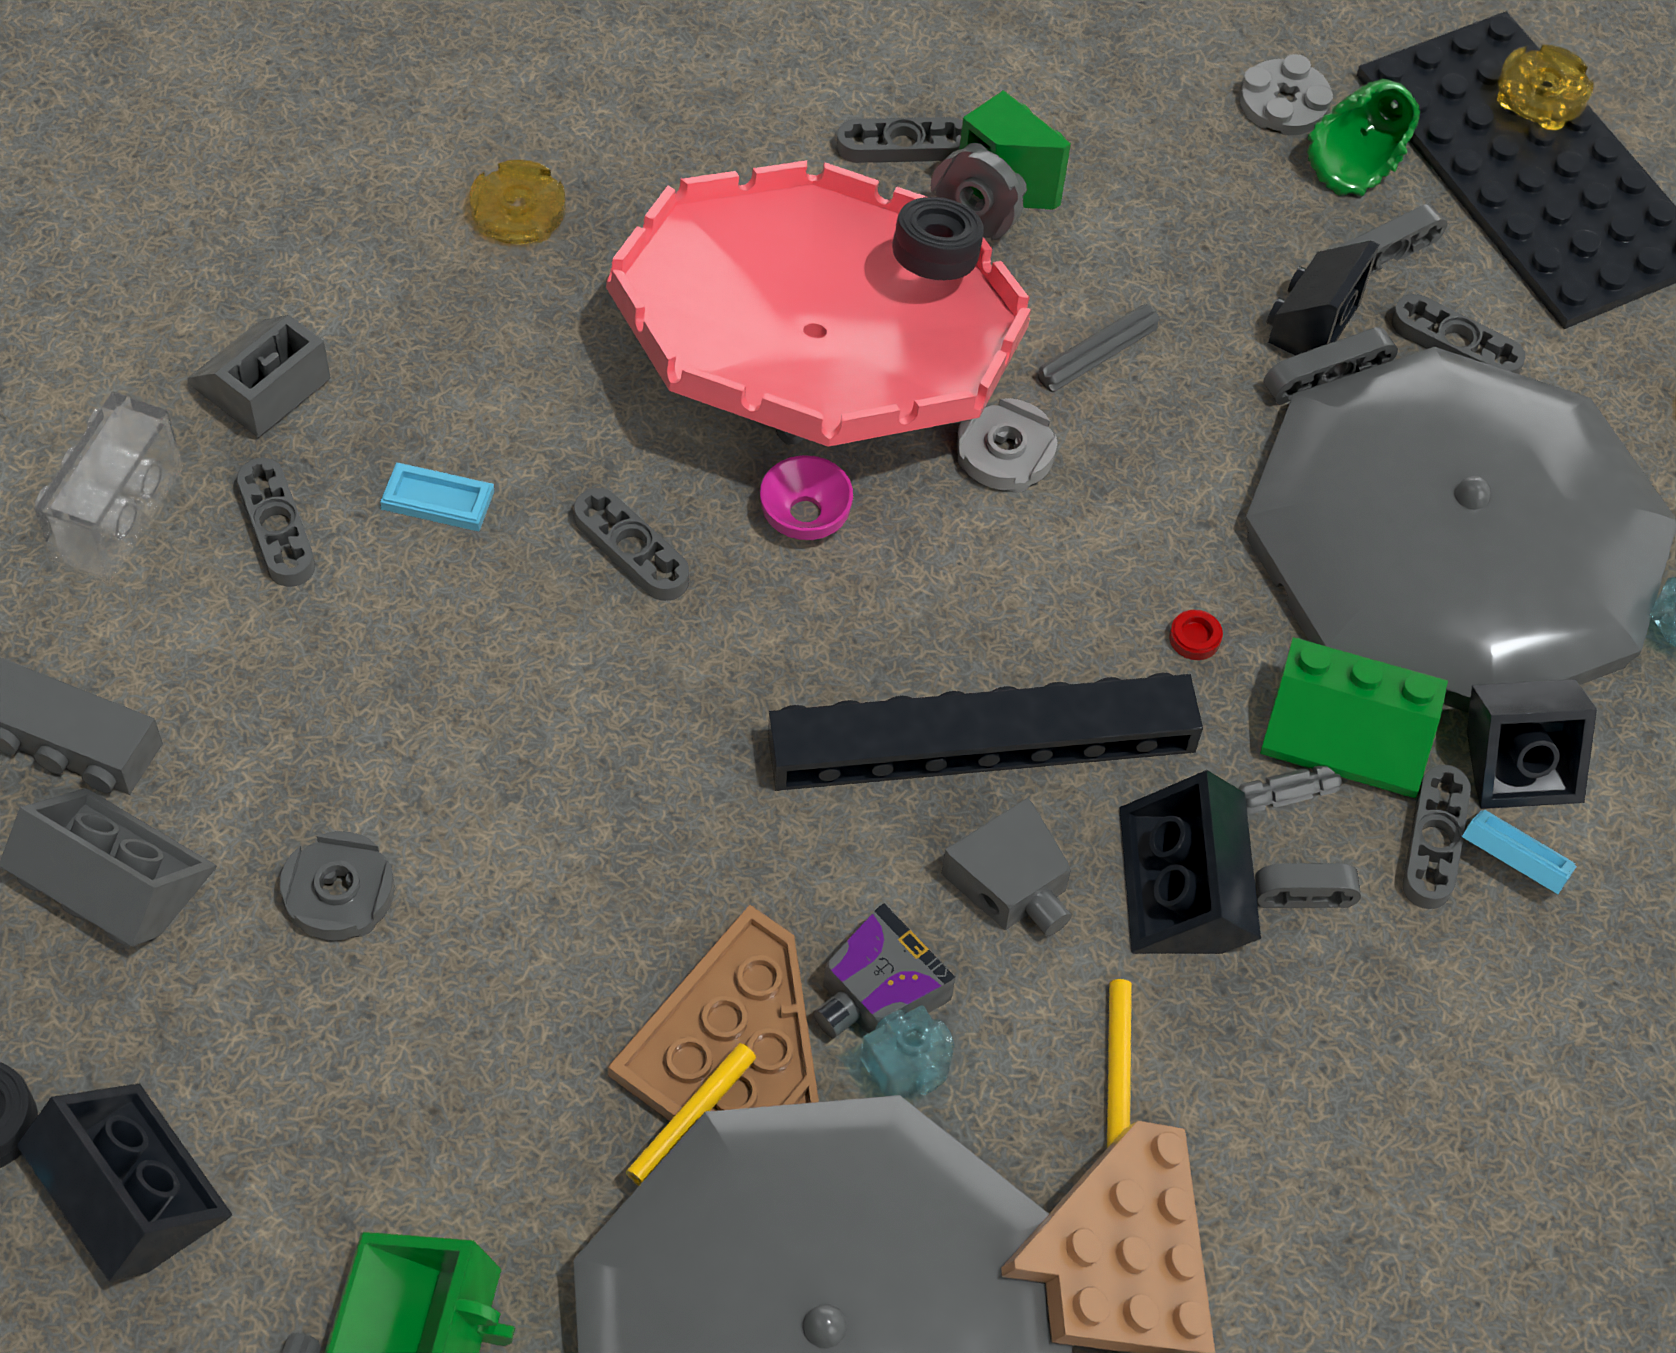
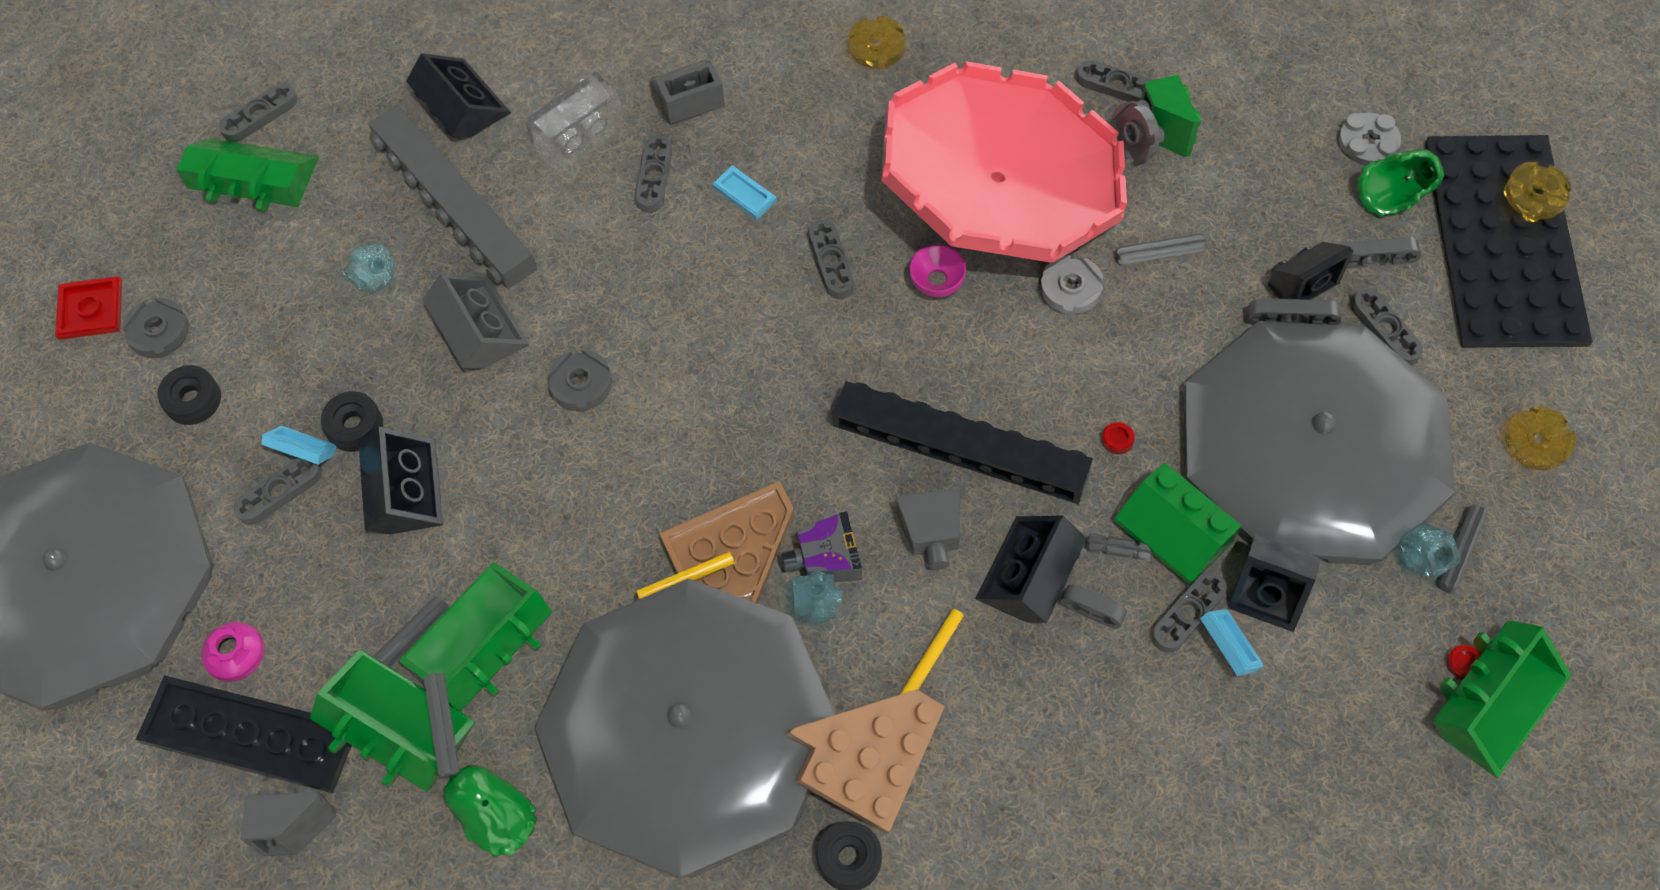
camera: 35 degrees right, 5 degrees up
(937, 238) = (1095, 137): black tyre -> none

